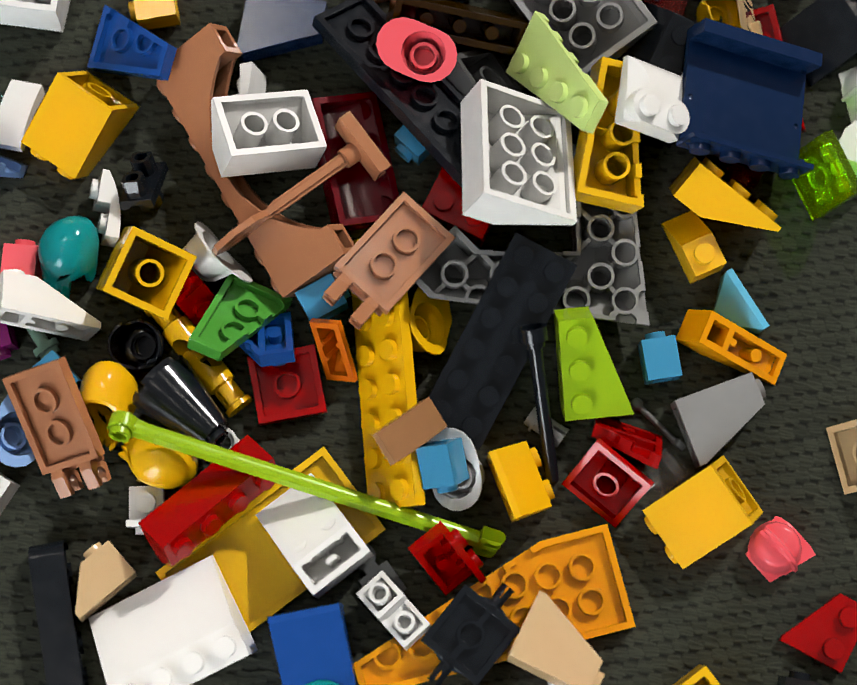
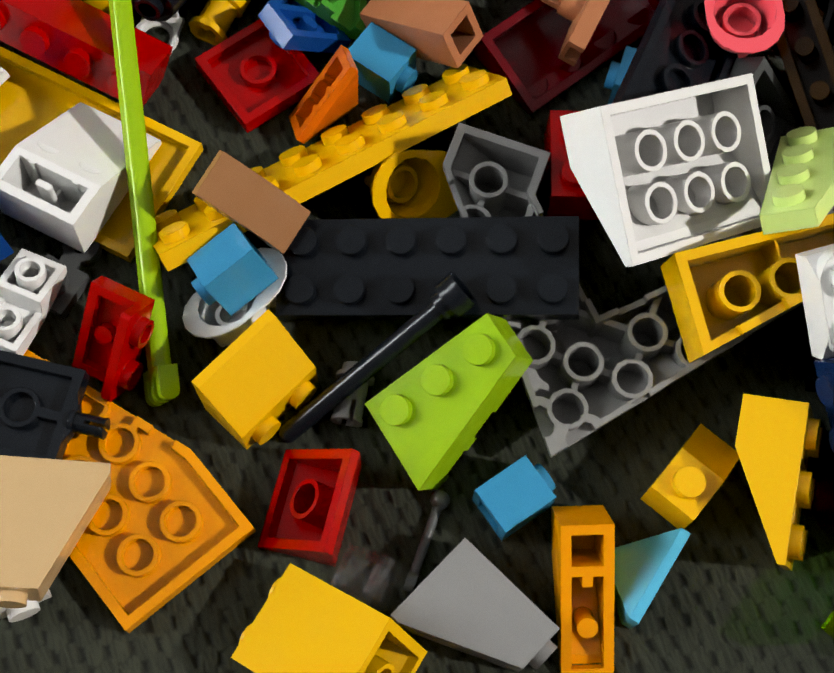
camera: 60 degrees right, 10 degrees down
(388, 259) = (459, 85): nougat tile -> none
(630, 440) = (381, 505): red wing -> none

